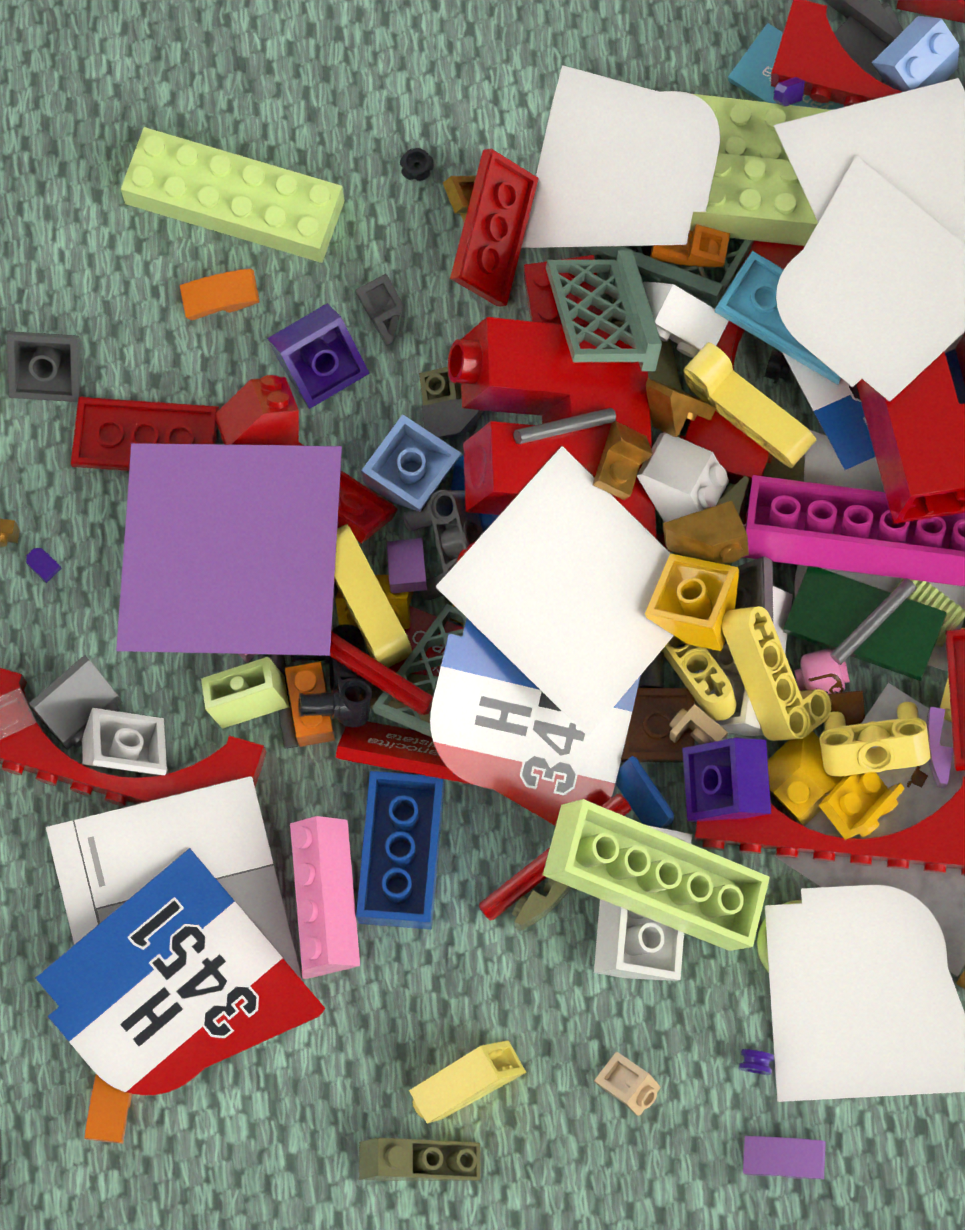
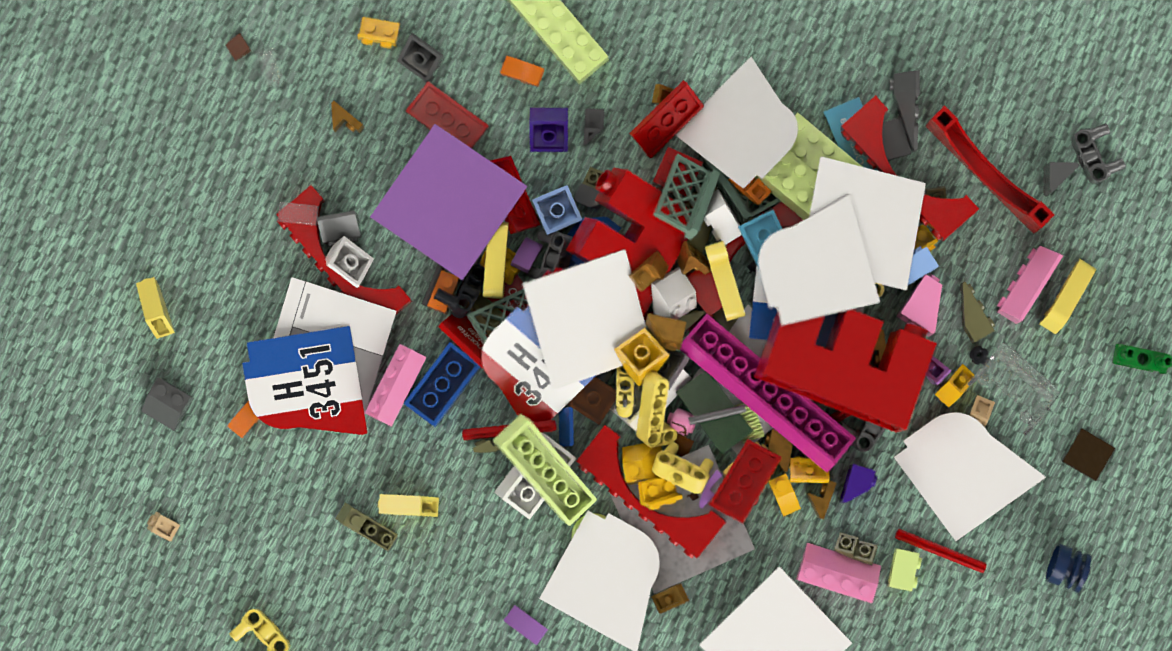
camera: 30 degrees right, 10 degrees up
(42, 564) = (364, 150): dark purple piece -> none
(245, 692) = (417, 269): yellowish green brick -> none
(260, 414) = (502, 145): red slope -> none
(380, 675) = (479, 302): red axle -> none
(414, 156) = (651, 69): black plate -> none
(564, 426) = (632, 241): dark grey bar -> none
(628, 1083) = (478, 550): tan bracket -> none
(703, 727) = (610, 416): tan bracket -> none
(727, 780) = (604, 446): dark purple slope -> none
(756, 1062) = (540, 576): dark purple bush -> none
(789, 91) = (842, 140): dark purple piece -> none
(919, 55) = (915, 160): light blue slope -> none

